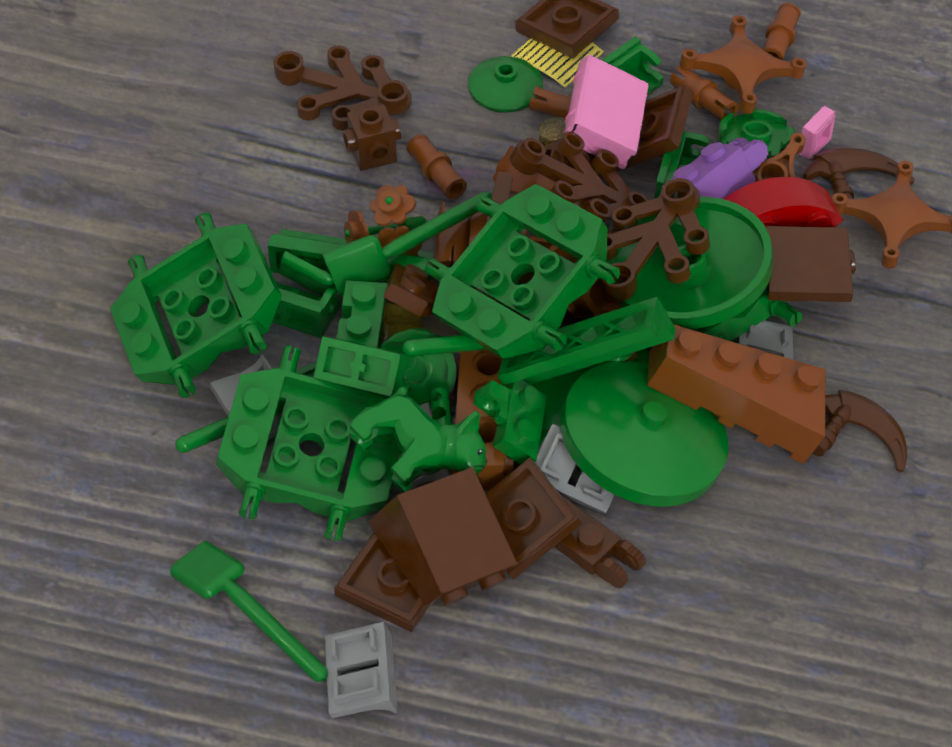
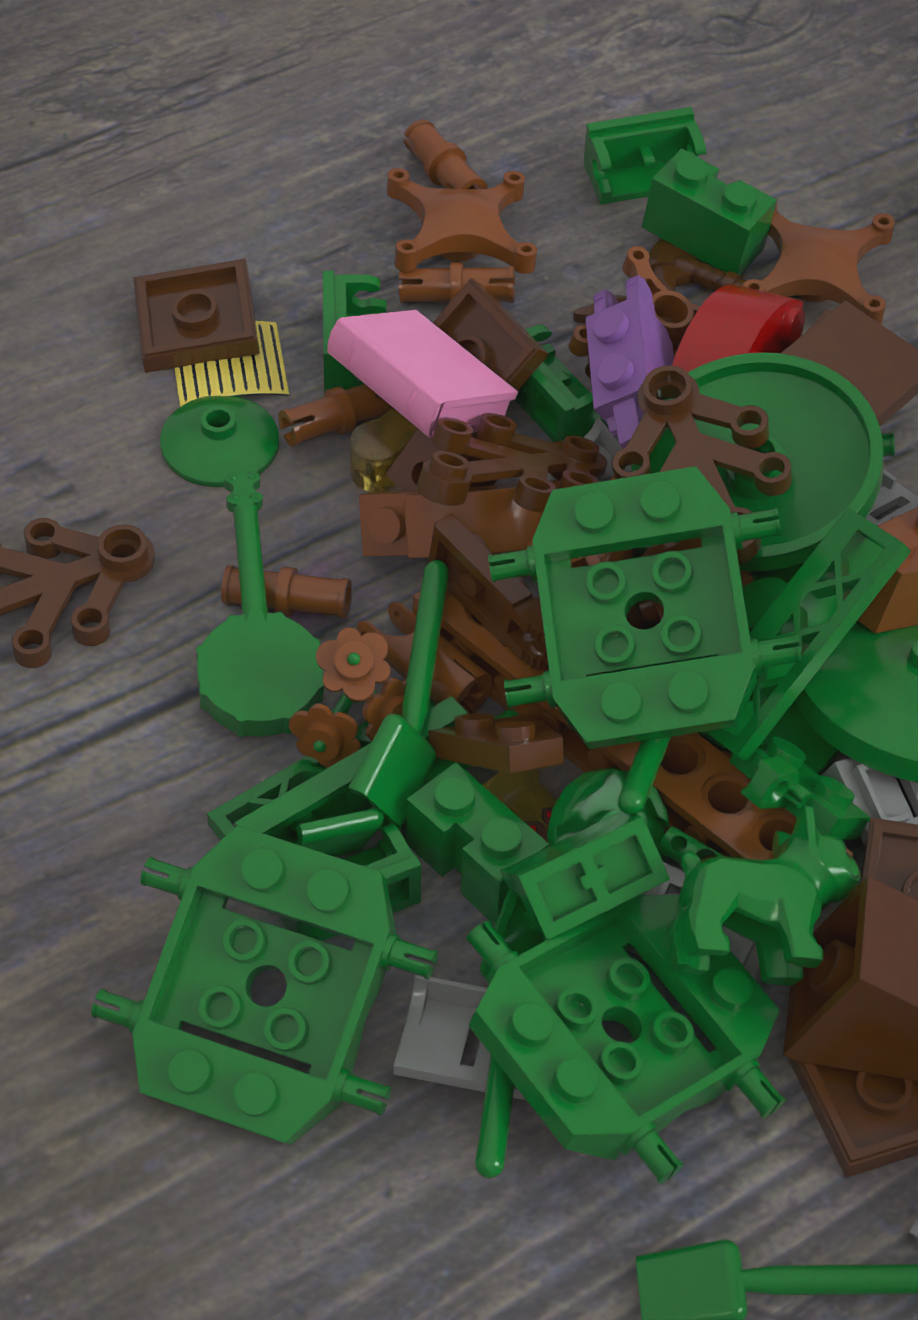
camera: 50 degrees left, 0 degrees up
(366, 173) = (258, 663): none -> green piece
(372, 137) = (173, 614): reddish brown brick -> none
(757, 126) = (564, 286): green tile -> none
(818, 132) = (626, 231): bright pink tile -> none
(867, 153) = (706, 216): none -> green brick
(887, 101) = (631, 150): none -> green hinge

